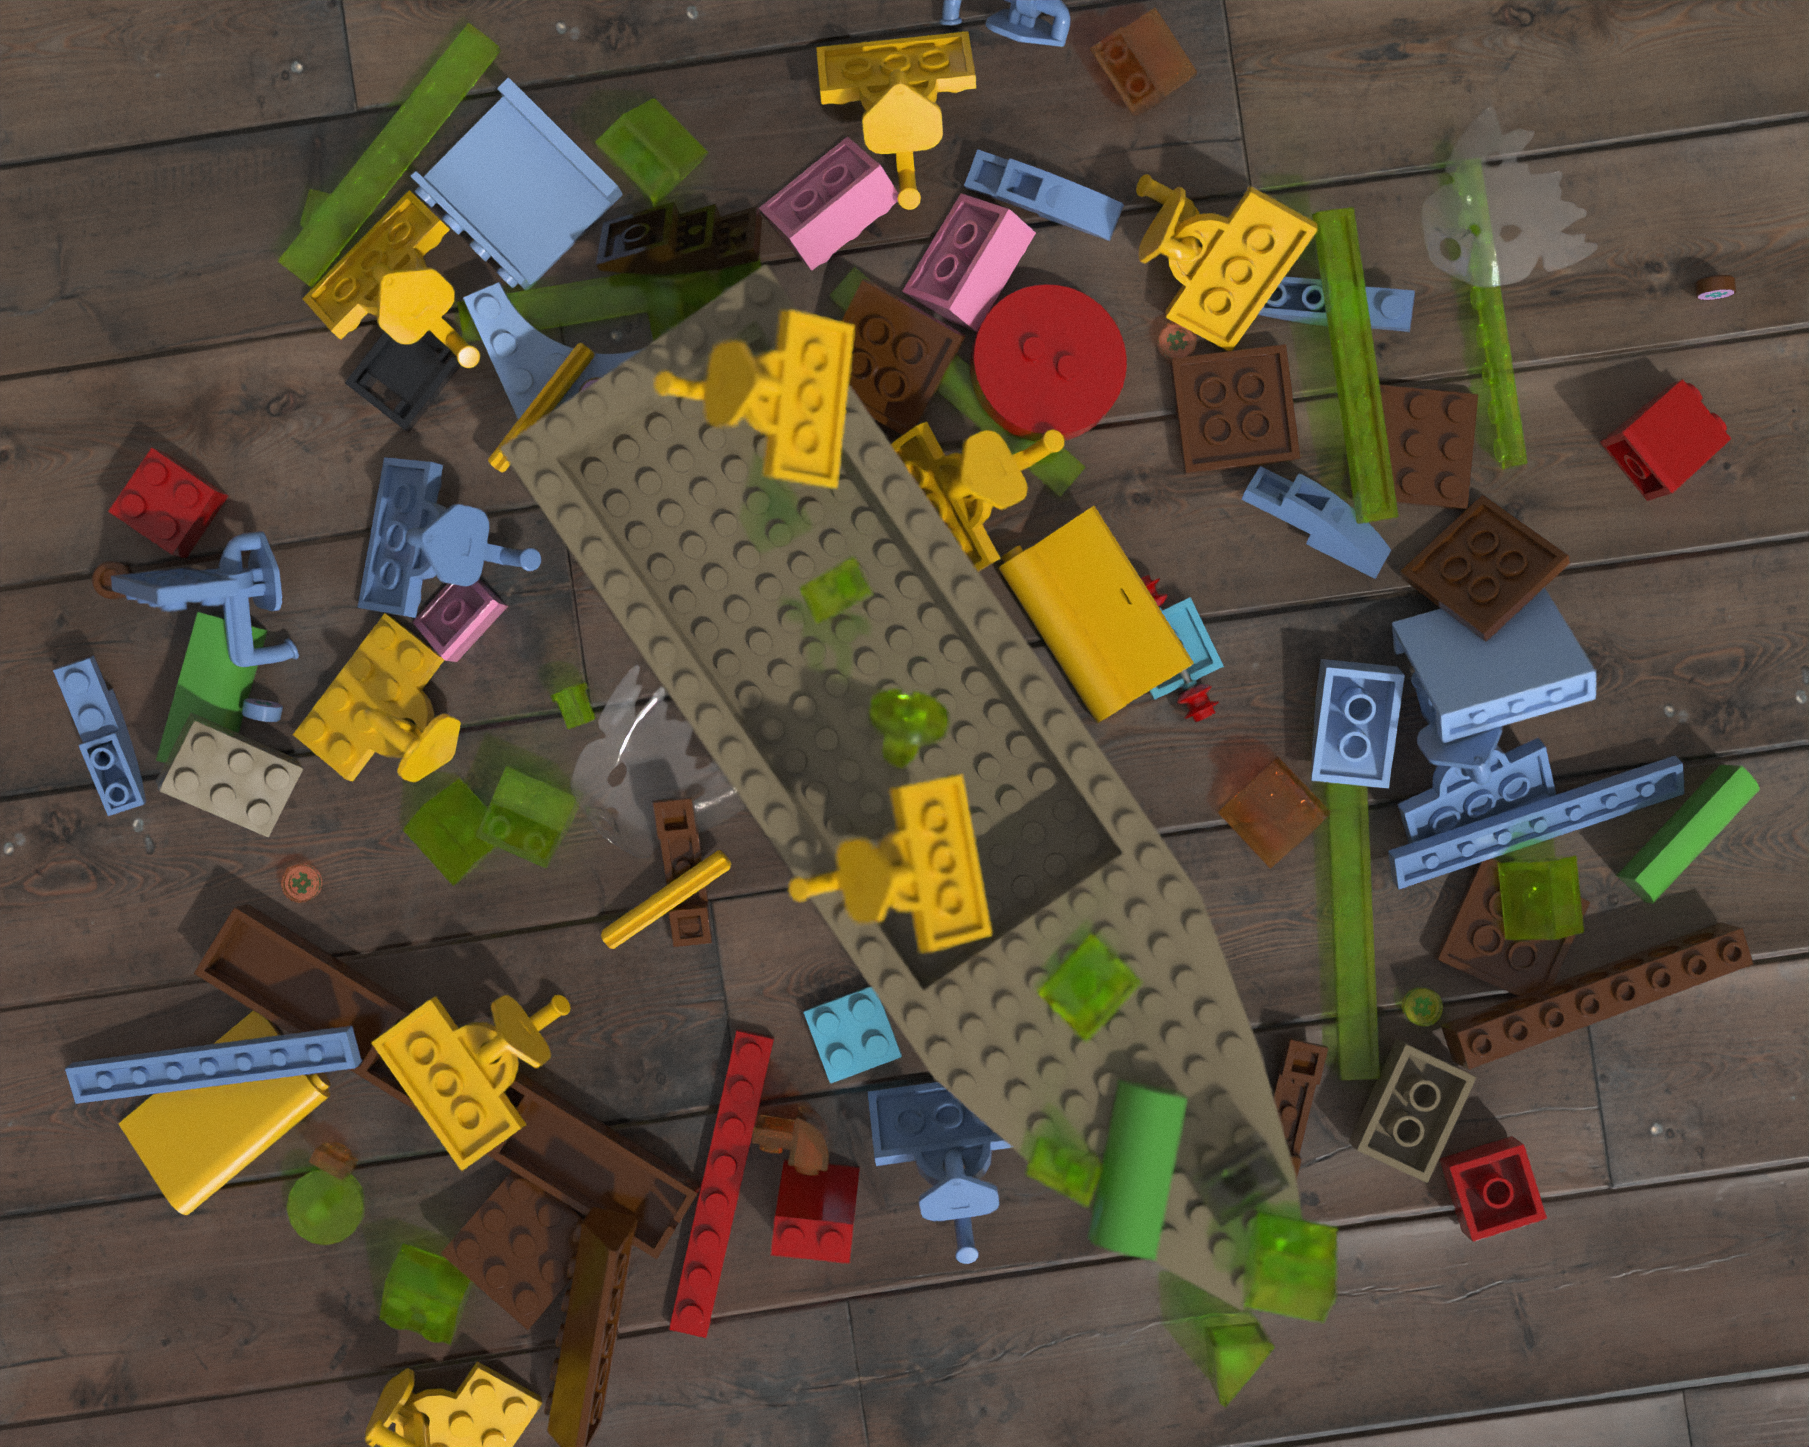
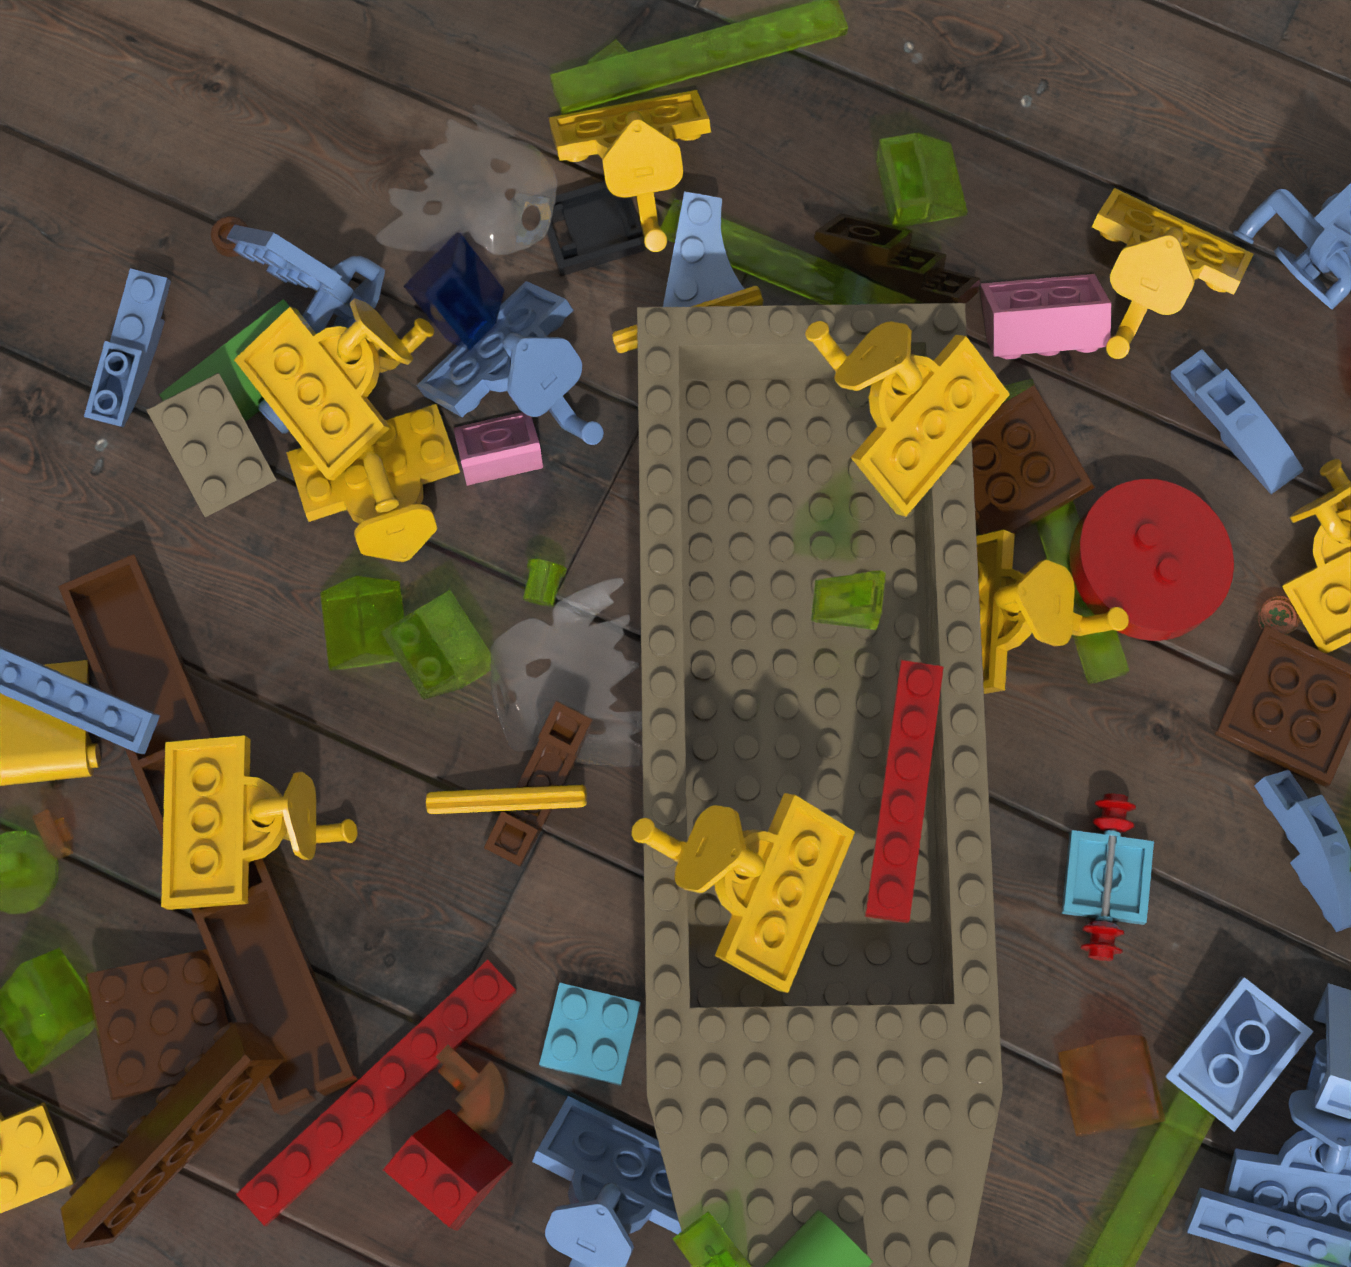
camera: 30 degrees right, 15 degrees down
(168, 503) = (323, 202): red brick -> none
(281, 673) = (324, 380): none -> yellow plate
(287, 414) = (474, 193): none -> clear piece
(301, 883) = (202, 580): clear orange tile -> none
(337, 508) = (458, 293): none -> clear blue slope
(518, 188) = (789, 145): light blue panel -> none
(907, 723) = (834, 751): clear neon green tile -> none
(969, 261) = (1137, 435): bright pink slope -> none
(979, 714) = (904, 792): none -> red plate
(1089, 987) = (846, 1099): clear neon green slope -> none
(1102, 638) = (1048, 821): yellow door -> none

